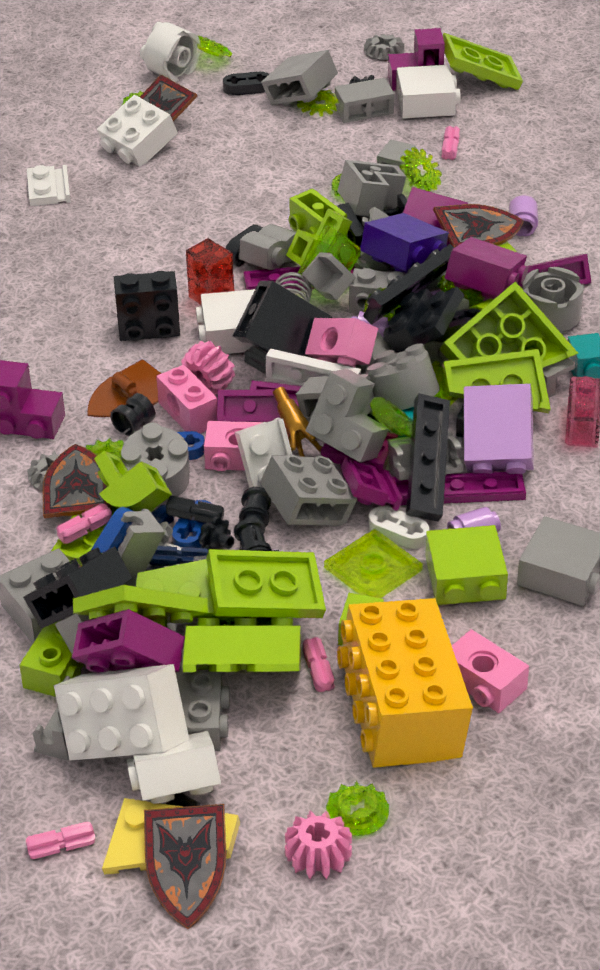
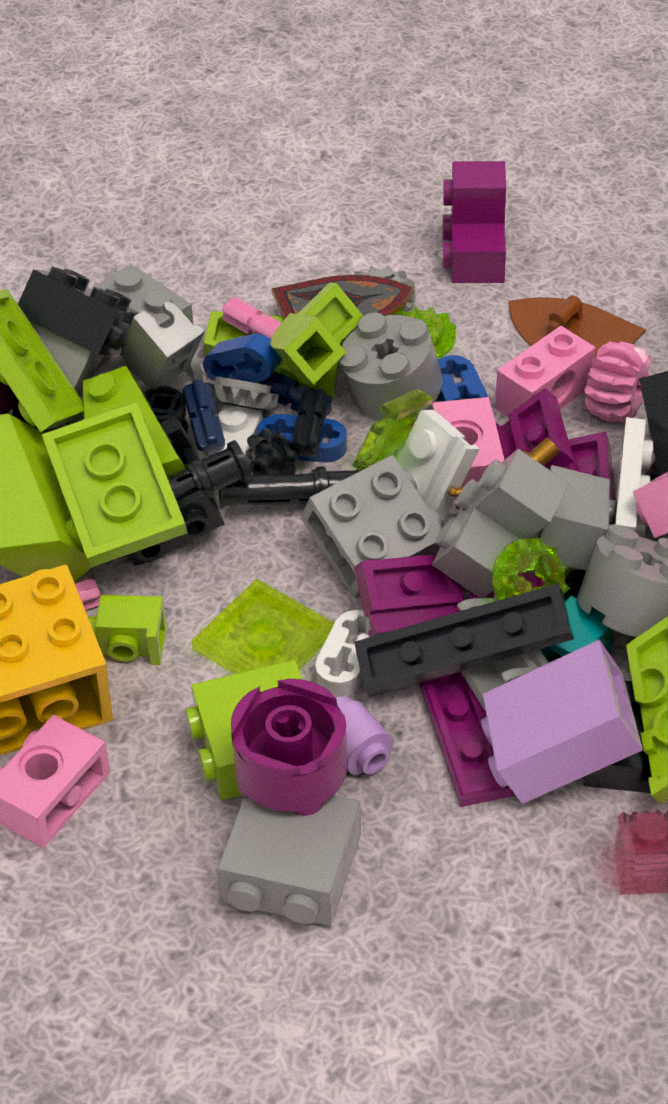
camera: 80 degrees right, 5 degrees up
(135, 413) = (503, 334): black wheel -> none
(231, 465) = (390, 433): none -> clear neon green plate
(519, 522) = (289, 746): none -> magenta brick

